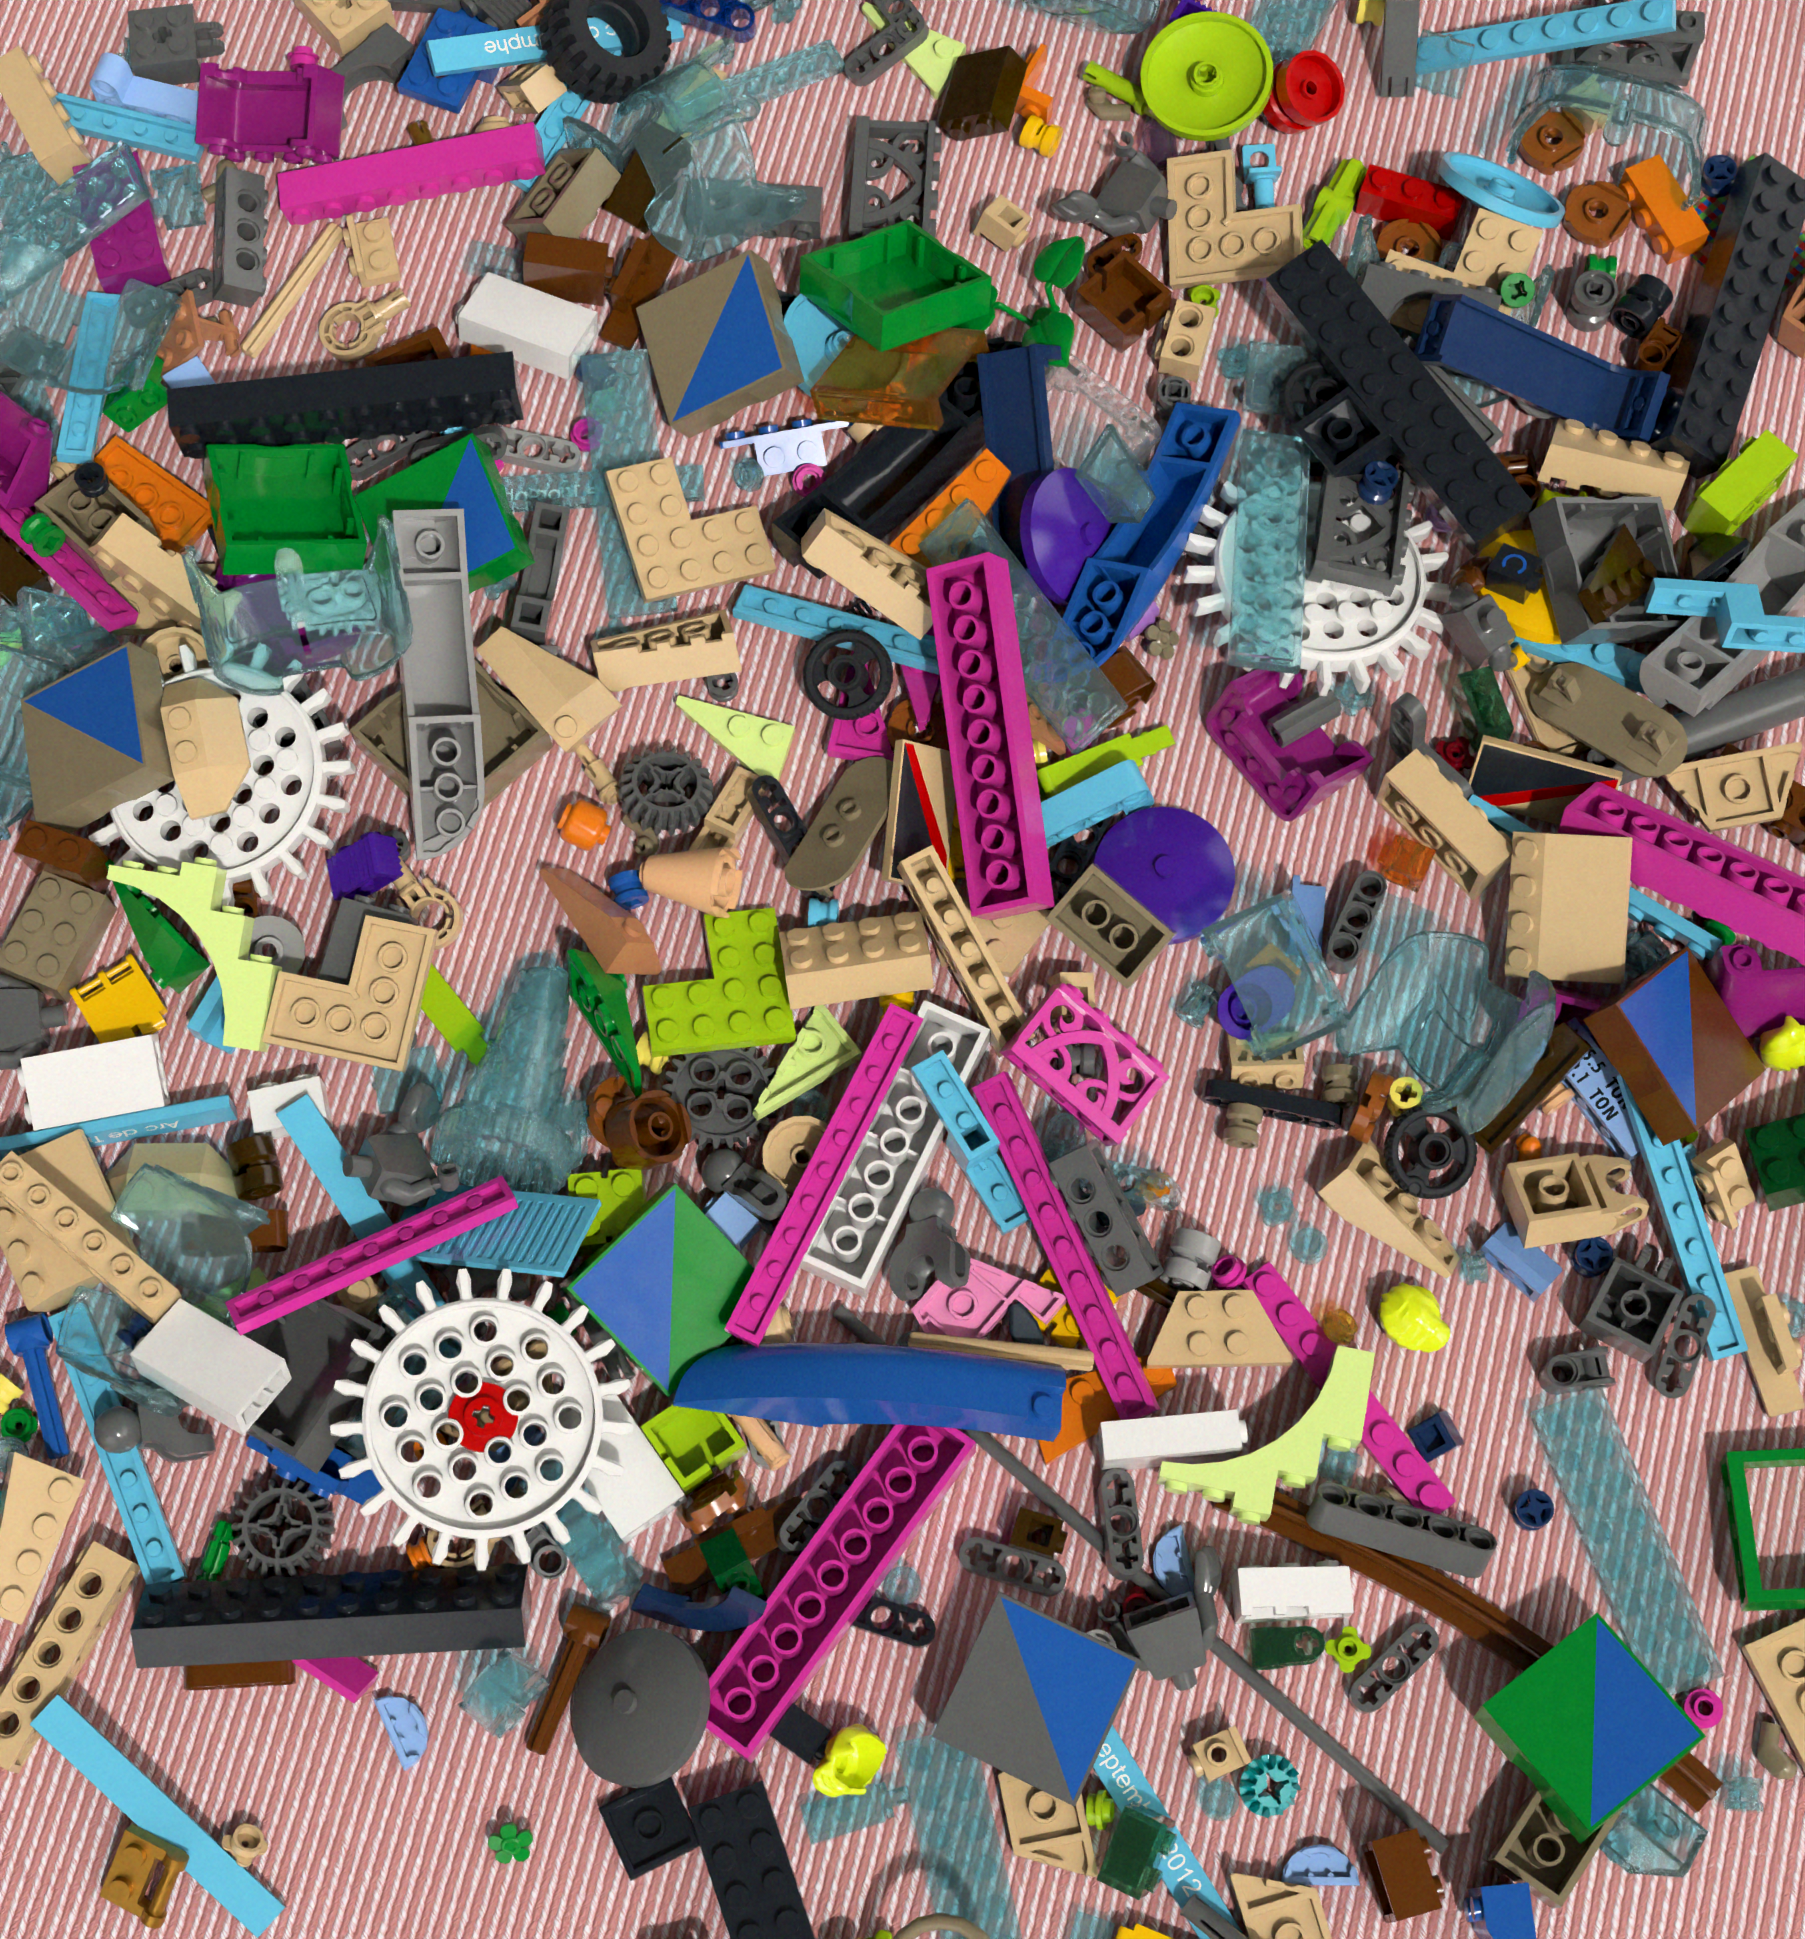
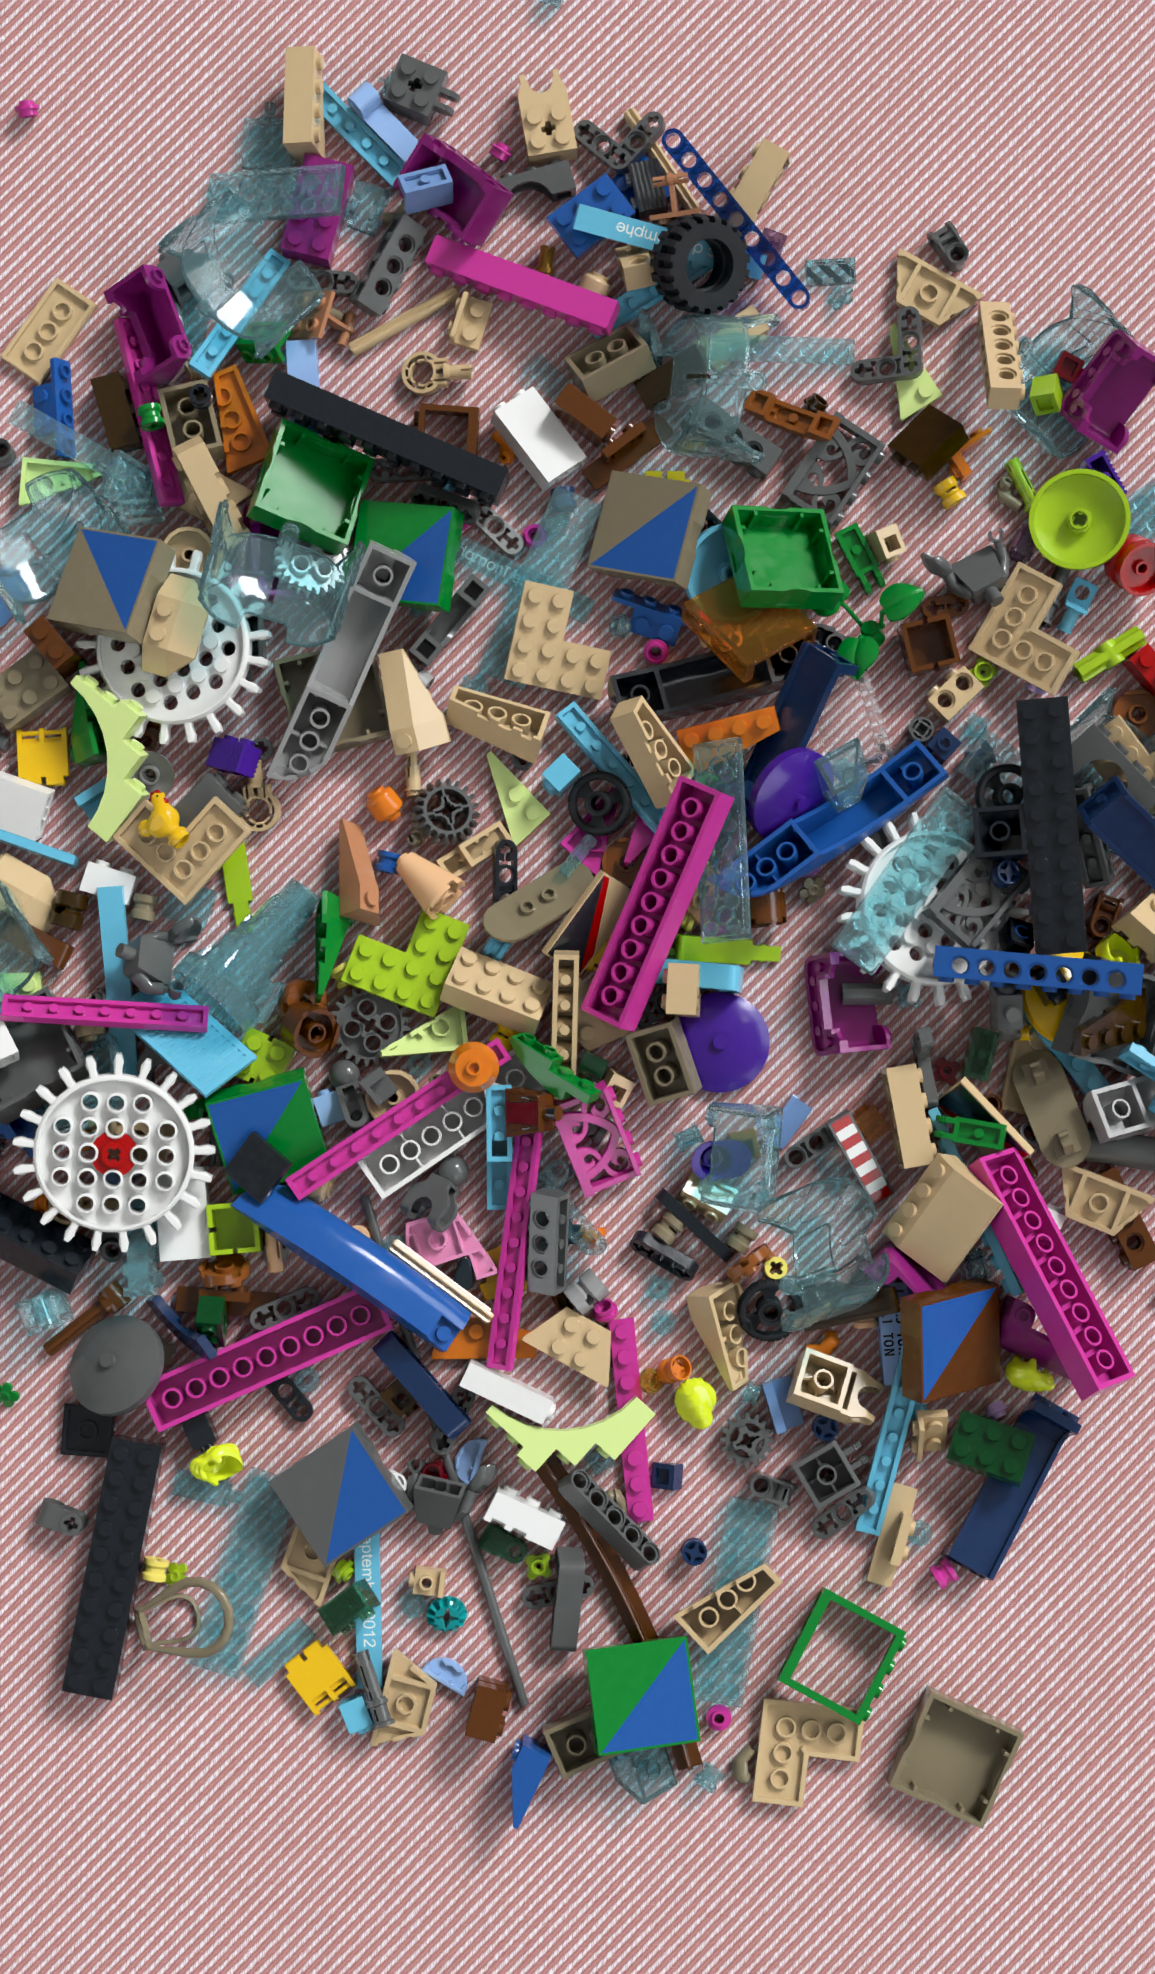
camera: 25 degrees right, 15 degrees up
(239, 126) = (426, 188): none -> medium blue panel
(318, 979) = (163, 822): none -> yellow animal
(350, 1112) = (144, 907): none -> dark tan wheel
(681, 1332) = (258, 1167): none -> black tile
(775, 1146) = (379, 1086): none -> dark grey panel
(780, 671) = (560, 776): none -> medium azure brick
(814, 153) = (790, 417): none -> dark orange slope
(830, 127) = (816, 403): none -> dark brown plate
(857, 749) = (577, 855): none -> clear light blue axle
(882, 1051) = (473, 1067): none -> orange cone
(971, 1001) = (544, 1065): none -> green slope
(986, 256) = (859, 556): none -> green hinge
(987, 1066) = (529, 1111): none -> torso
(1029, 982) = (592, 1067): none -> clear green piece
(1056, 1496) = (422, 1385): none -> dark blue beam
(1085, 824) = (683, 991): none -> tan brick
(1211, 391) = (943, 745): none -> dark blue brick
(1269, 1172) = (664, 1255): none -> black beam
(1361, 1292) = (674, 1369): none -> orange wheel
(1398, 1629) = (567, 1598): none -> dark grey beam
(1413, 898) = (859, 1156): none -> tile
(1439, 548) = (1016, 936): none -> black brick
(1494, 1320) = (734, 1444): none -> dark grey gear
(1535, 790) = (973, 1132): none -> green hinge
(1600, 485) = (946, 956): none -> blue brick
(1621, 1553) = (722, 1610): none -> tan wedge
(1783, 1109) = (996, 1410): none -> lavender plate

